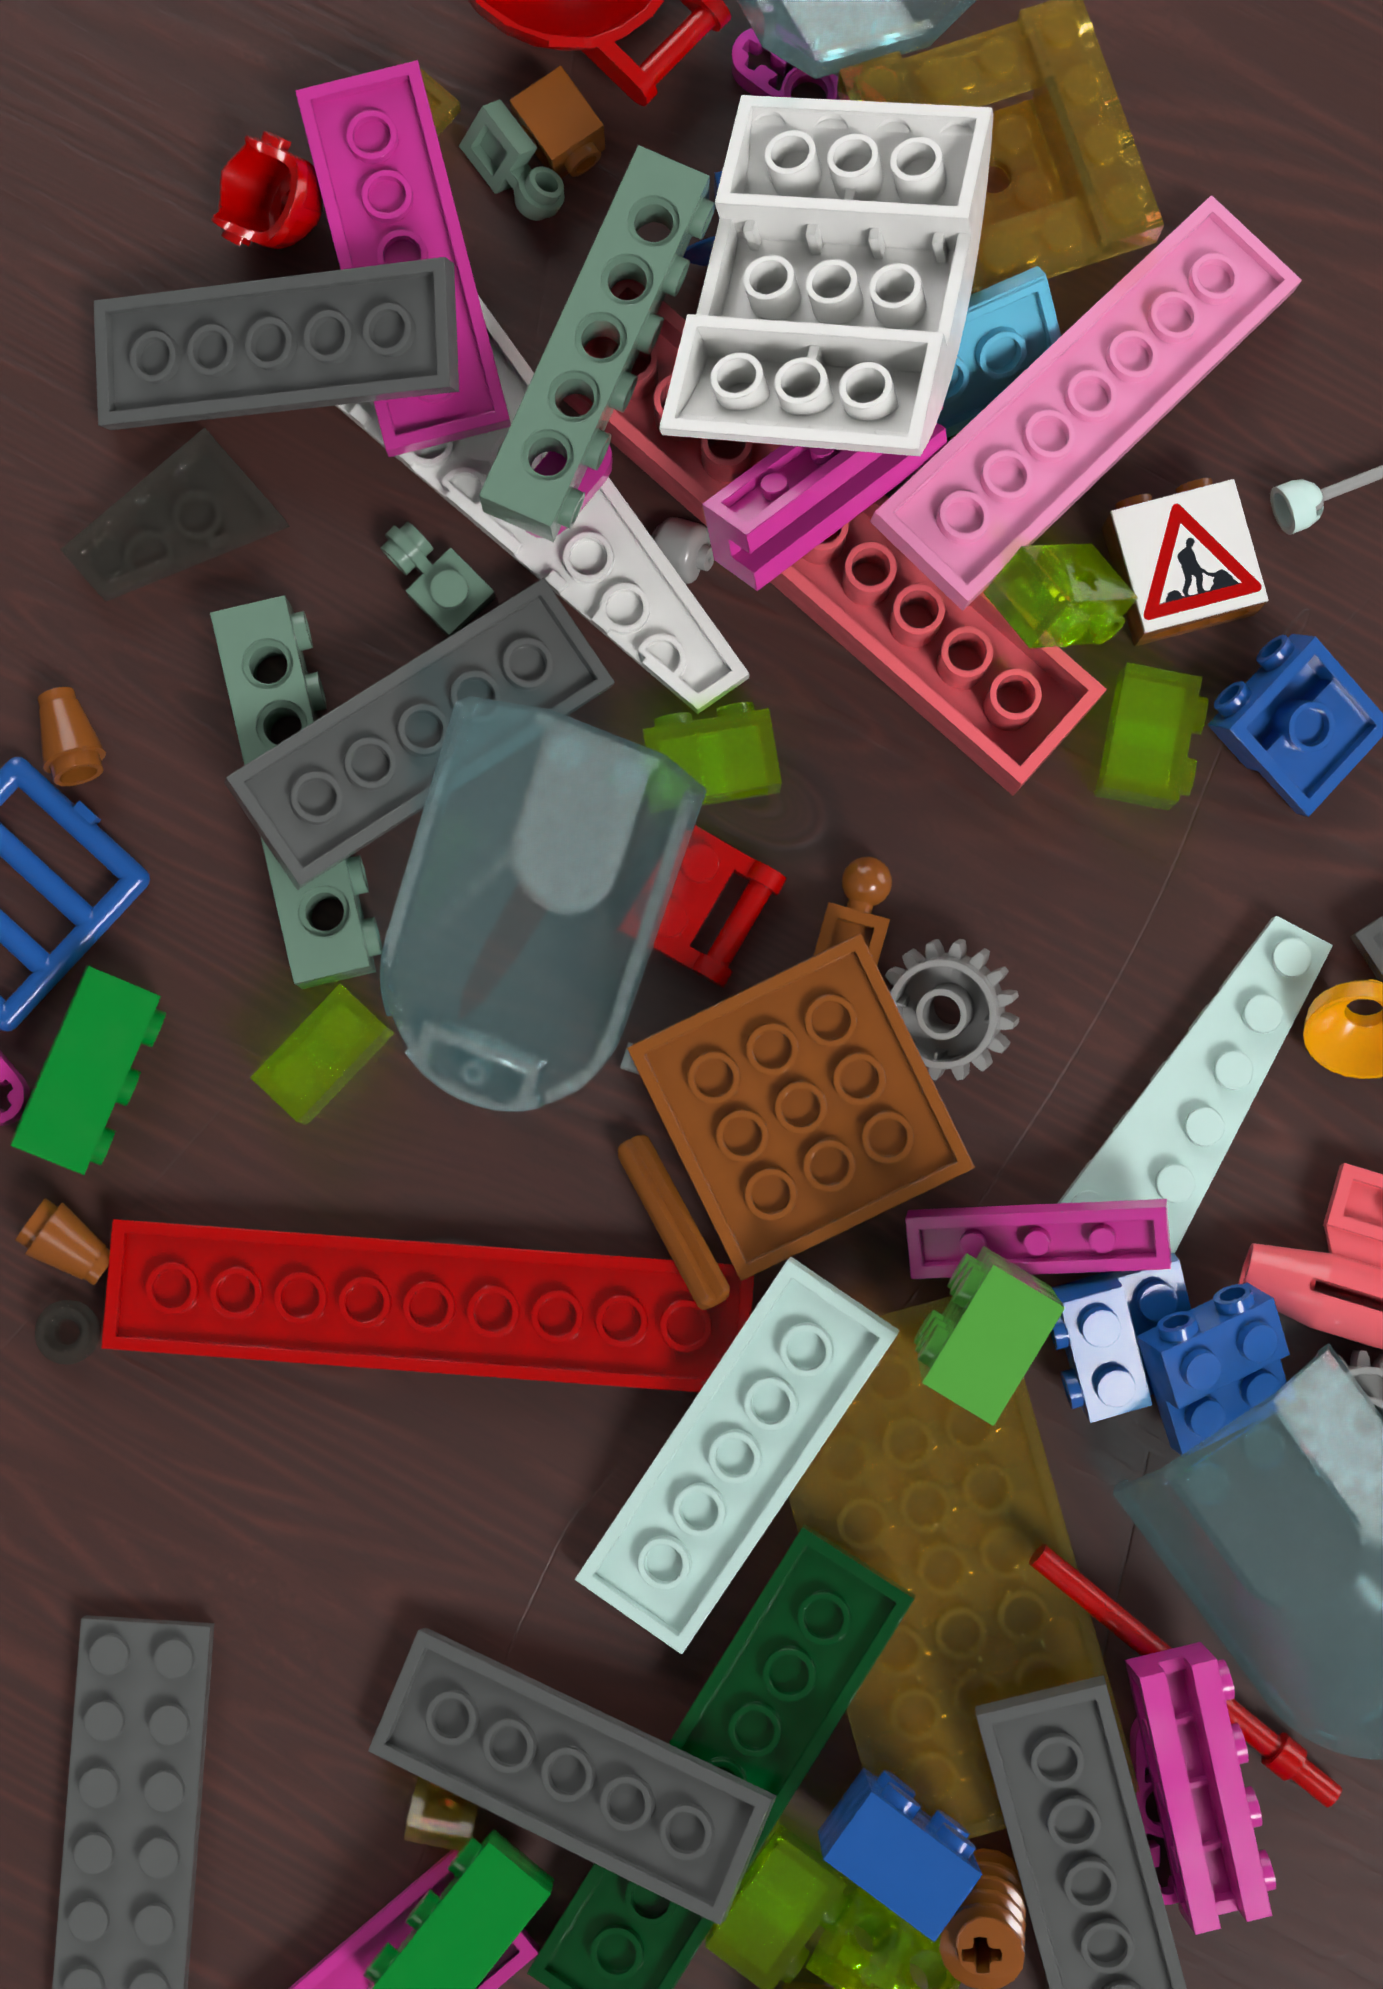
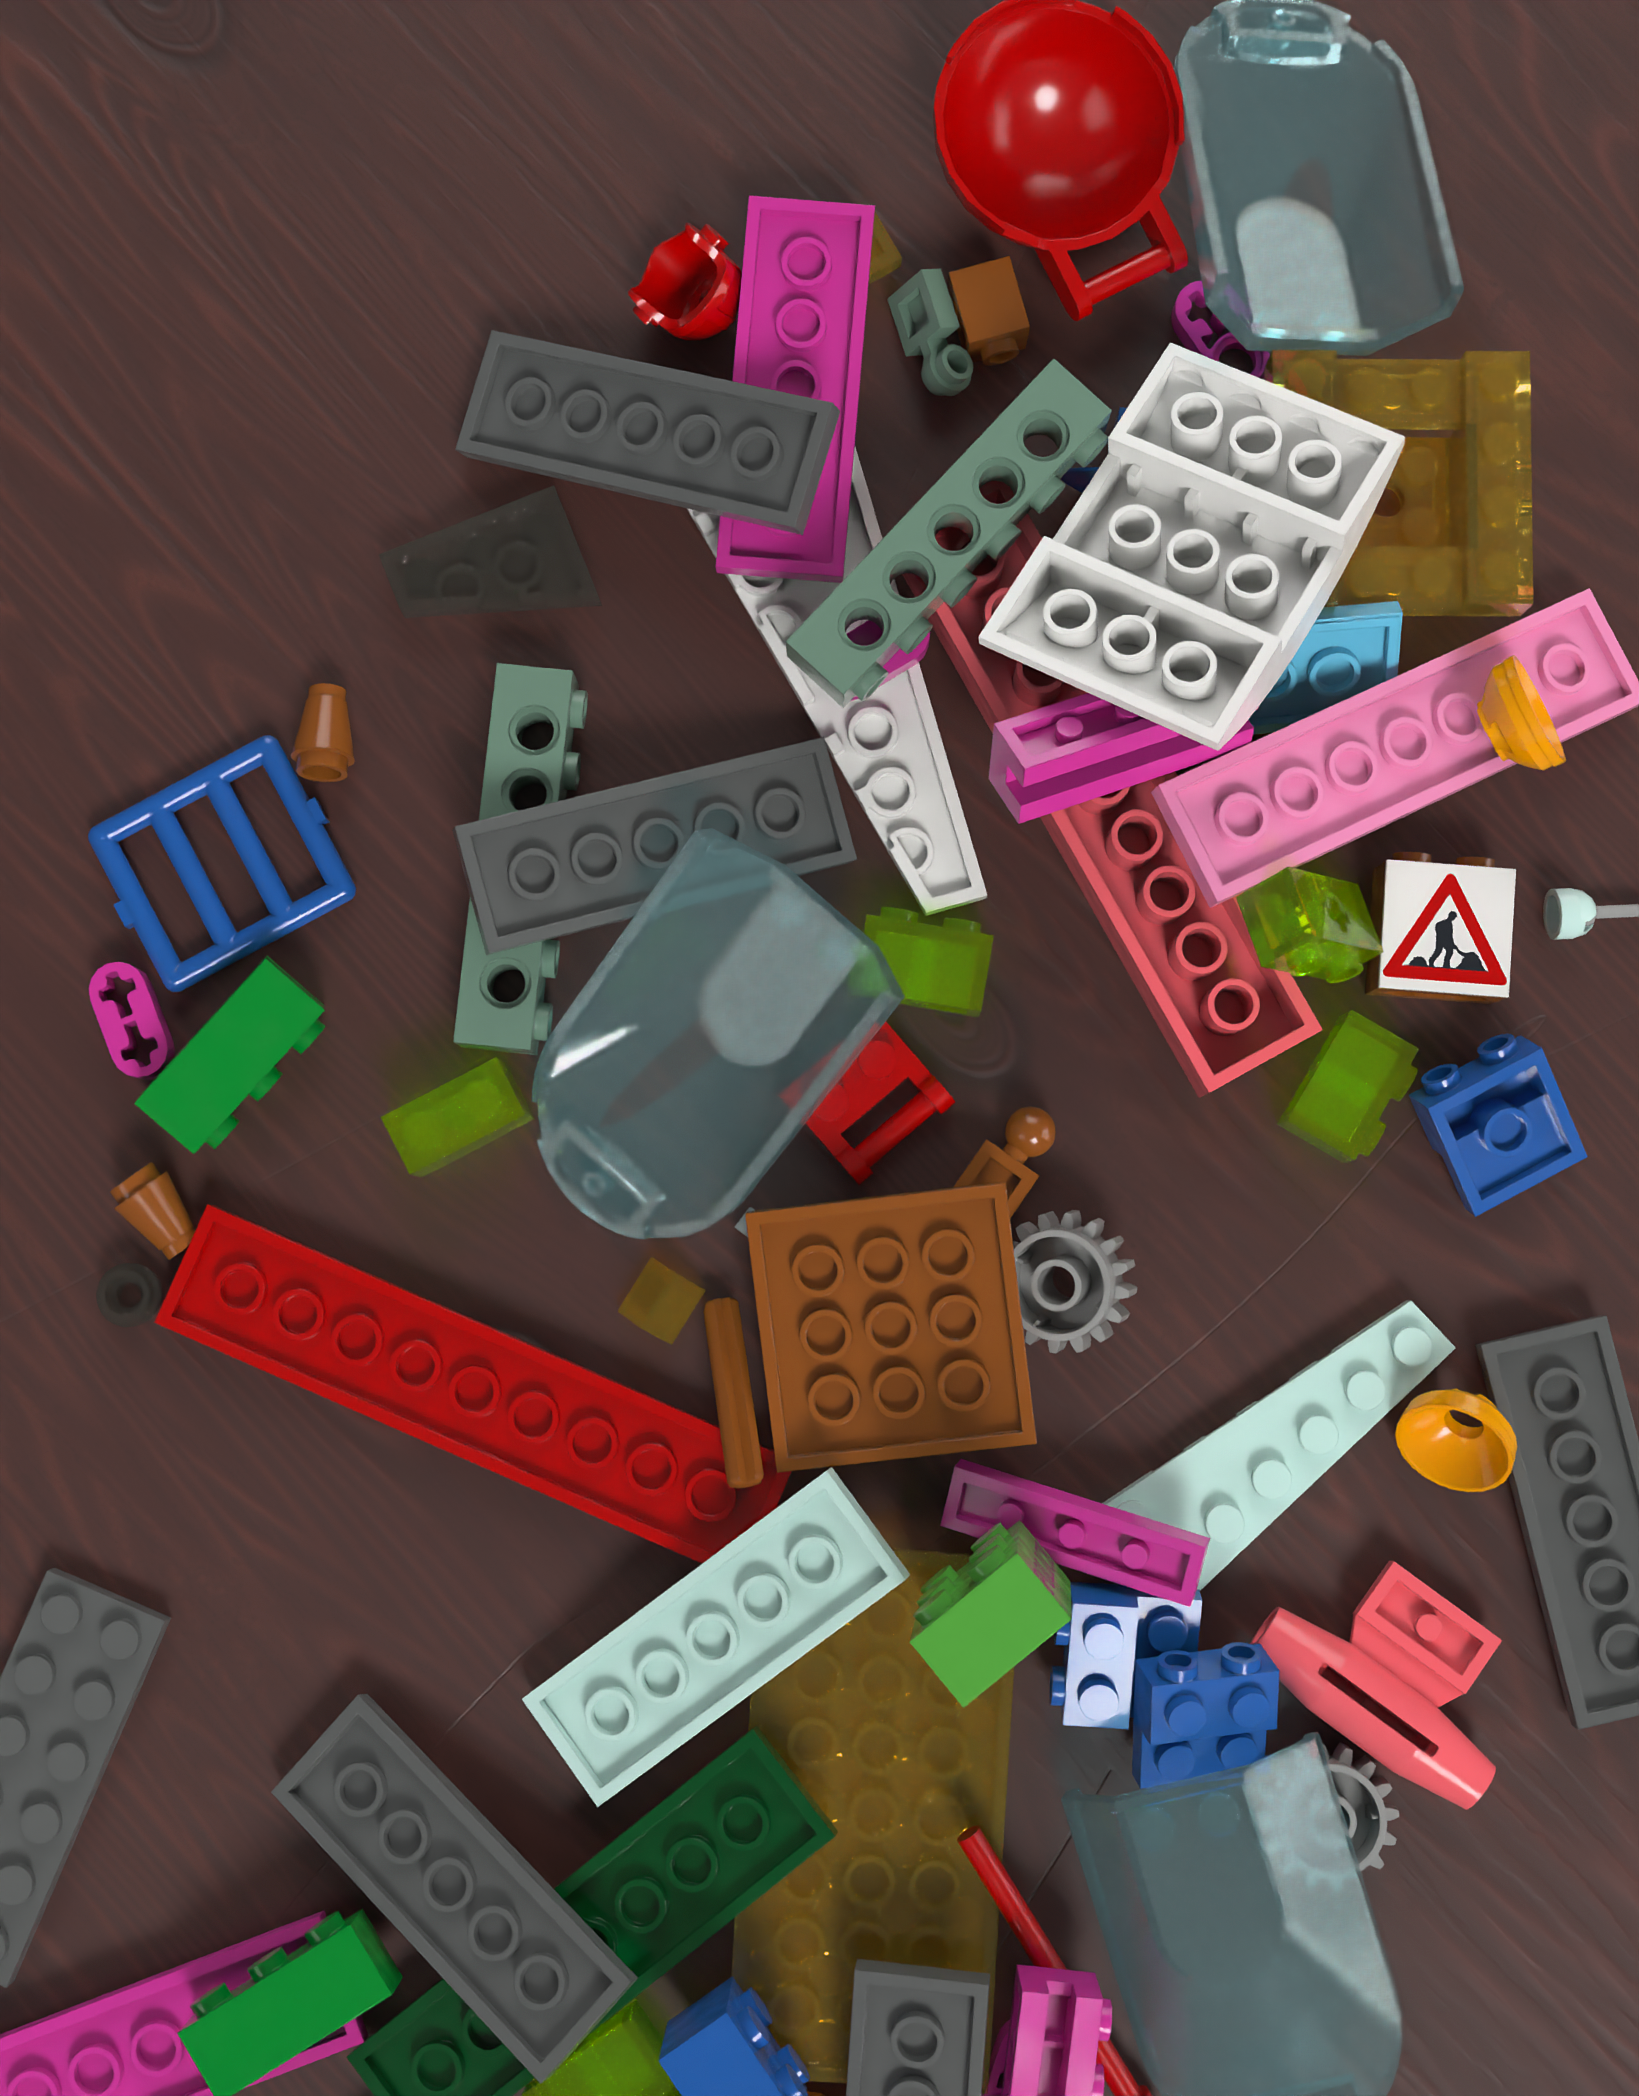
camera: 25 degrees right, 0 degrees up
(439, 1817) = (315, 1880): clear yellow plate -> none
(446, 590) = (730, 715): sand green plate -> none
(575, 1161) = (661, 1301): none -> clear yellow slope
(685, 546) = (967, 752): light grey piece -> none
(1187, 336) = (1518, 718): none -> light orange piece

